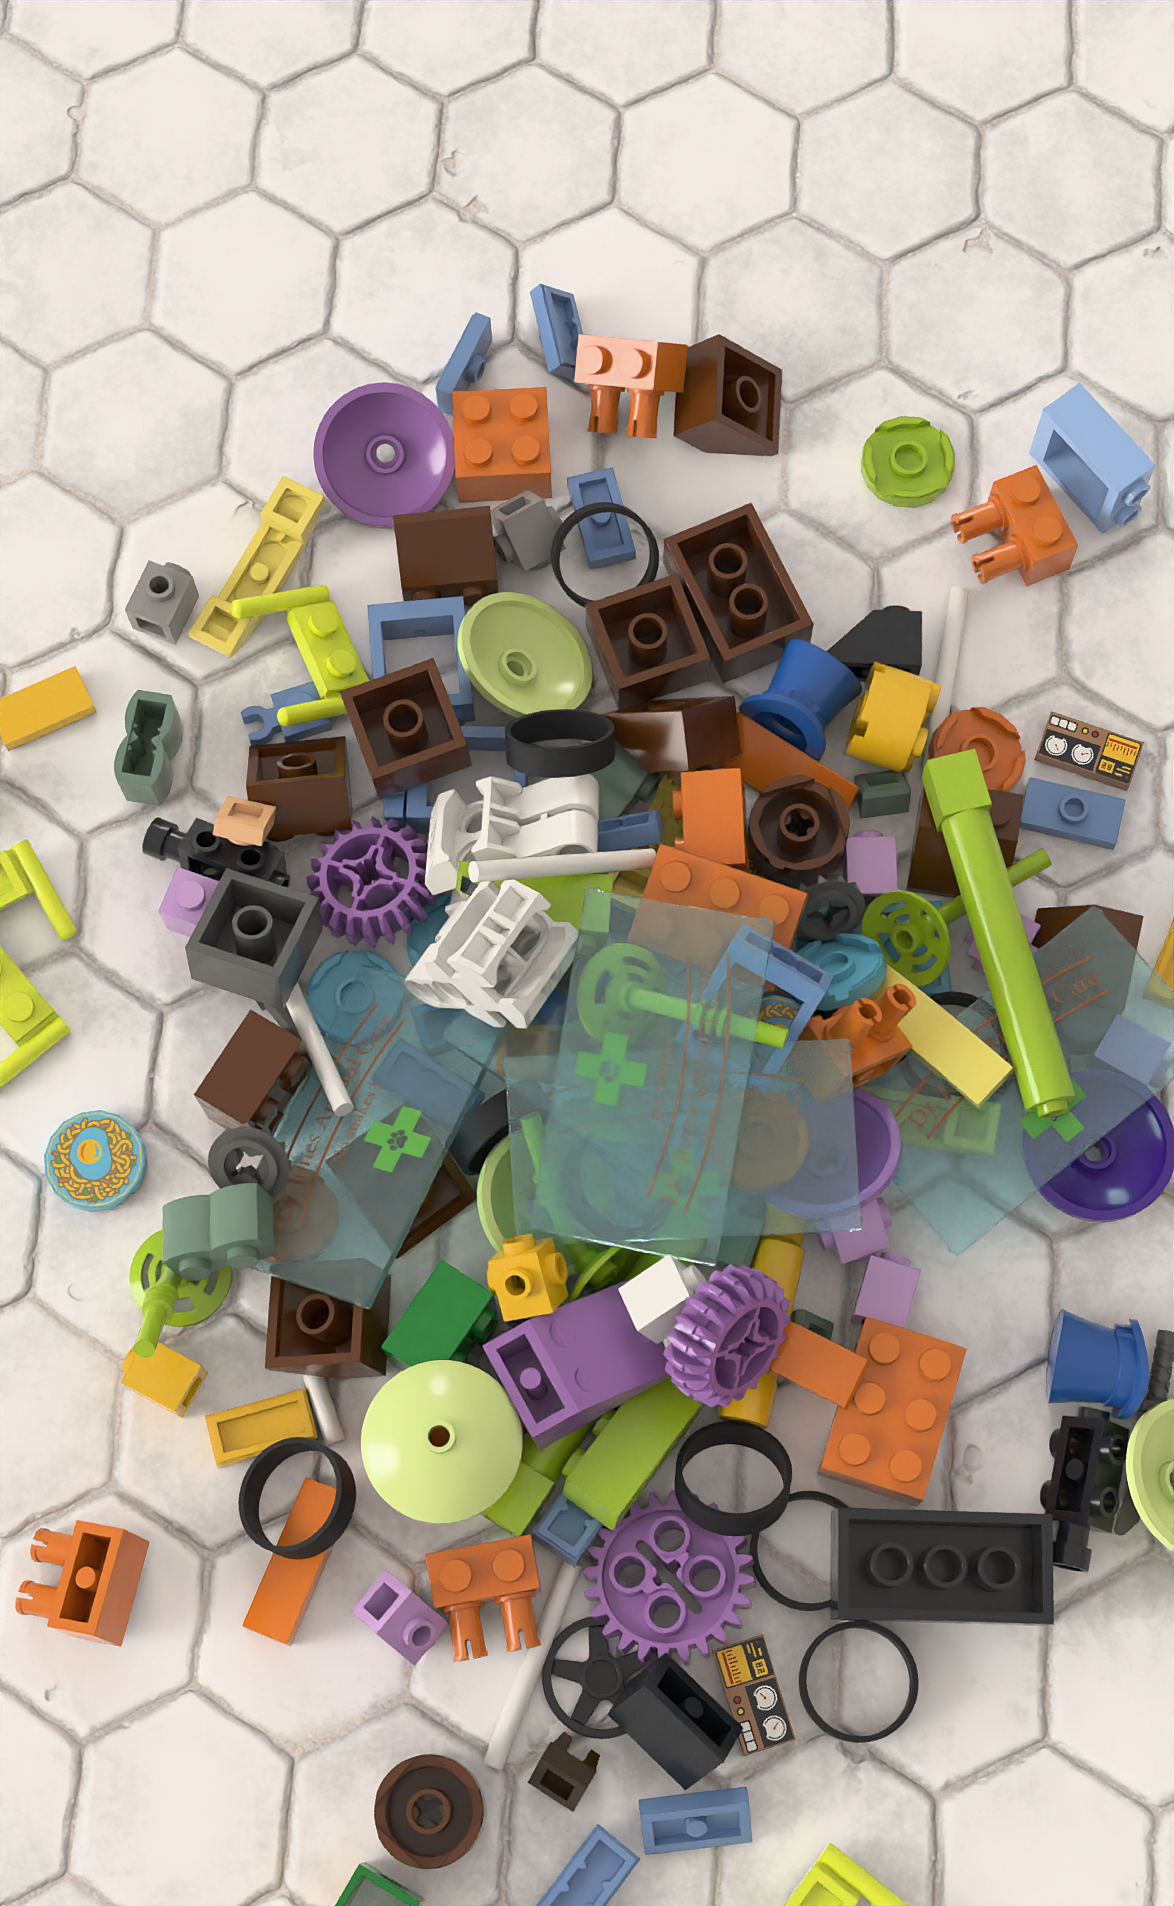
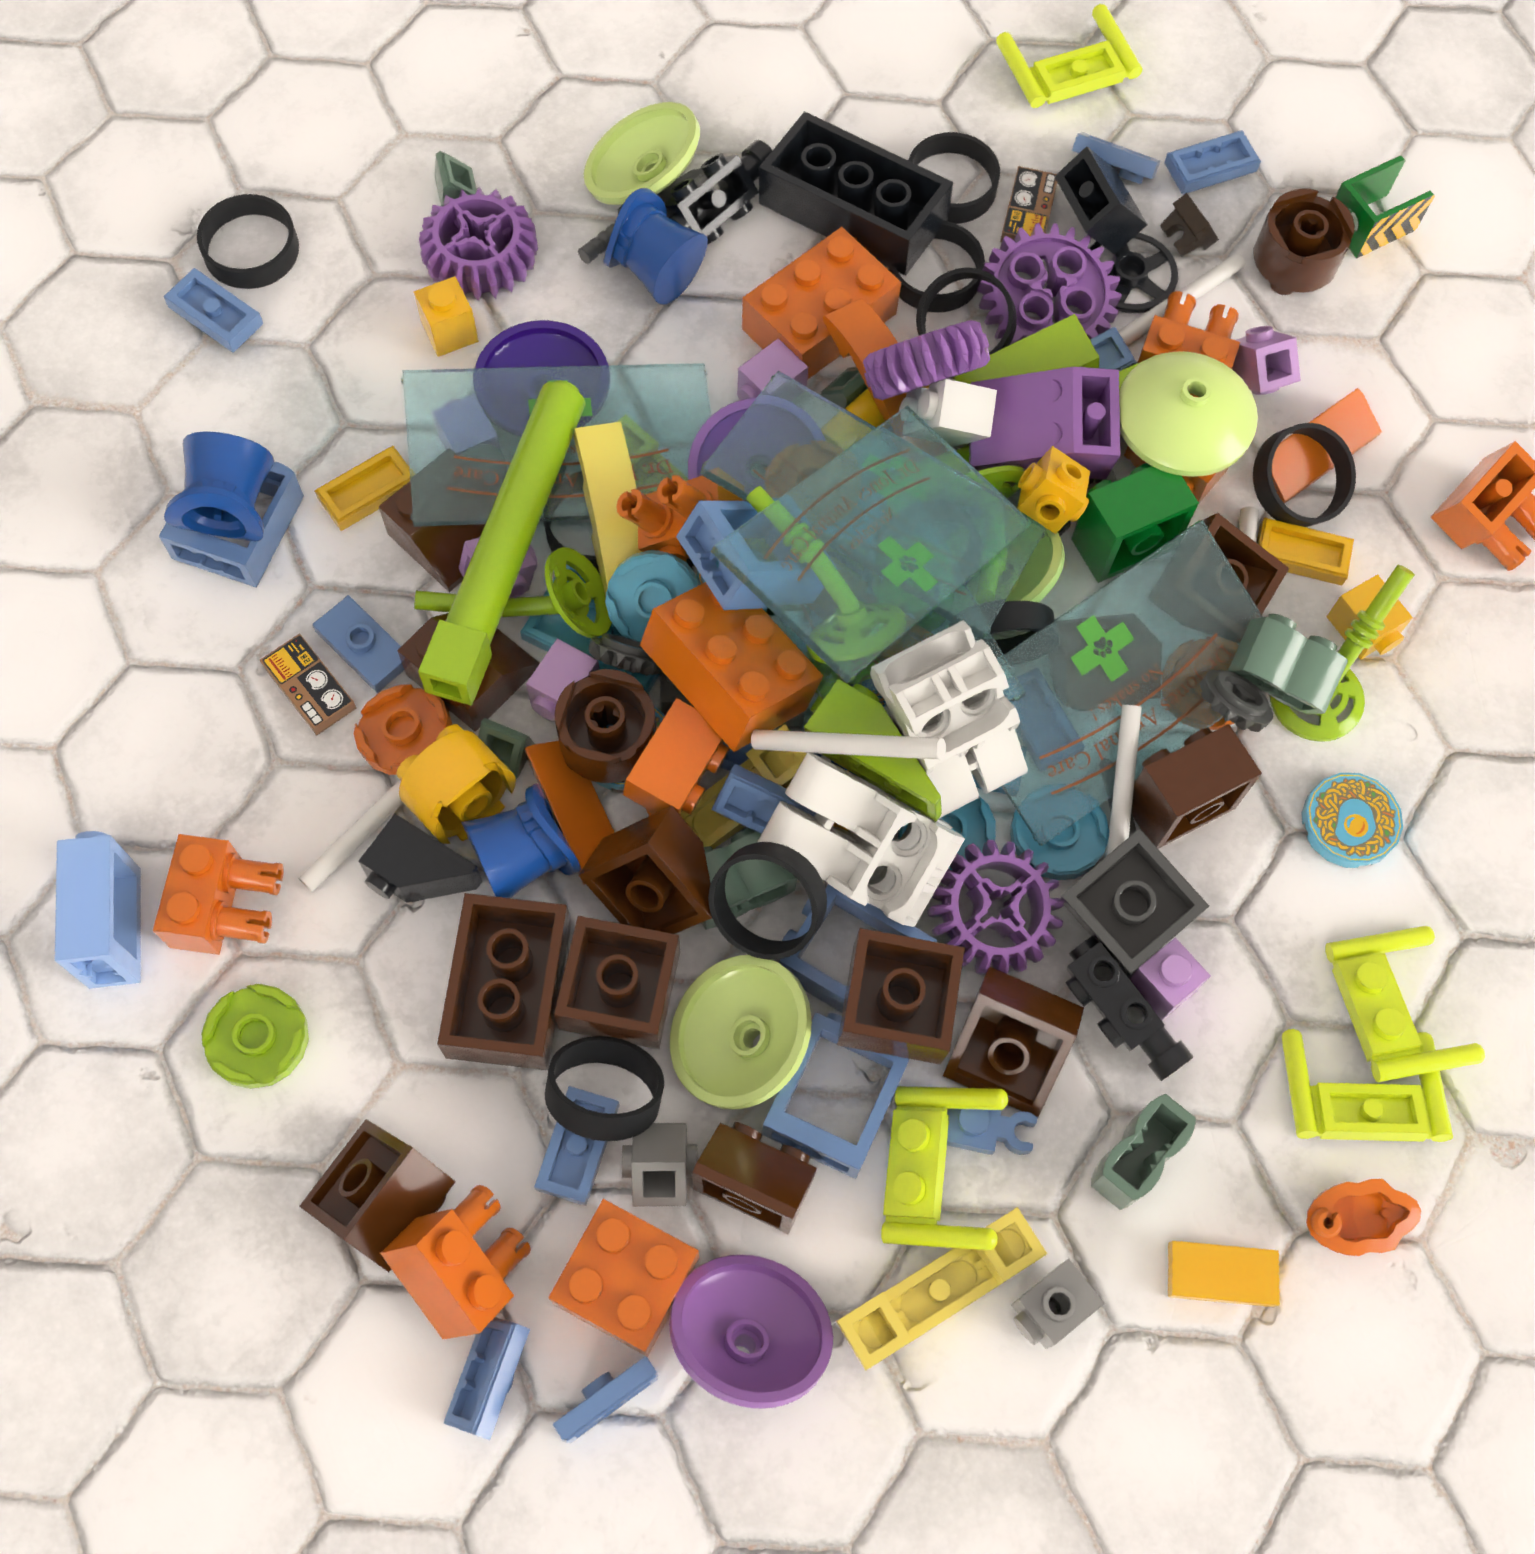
camera: 155 degrees left, 5 degrees down
(244, 821) = (1094, 1004): light nougat plate -> none

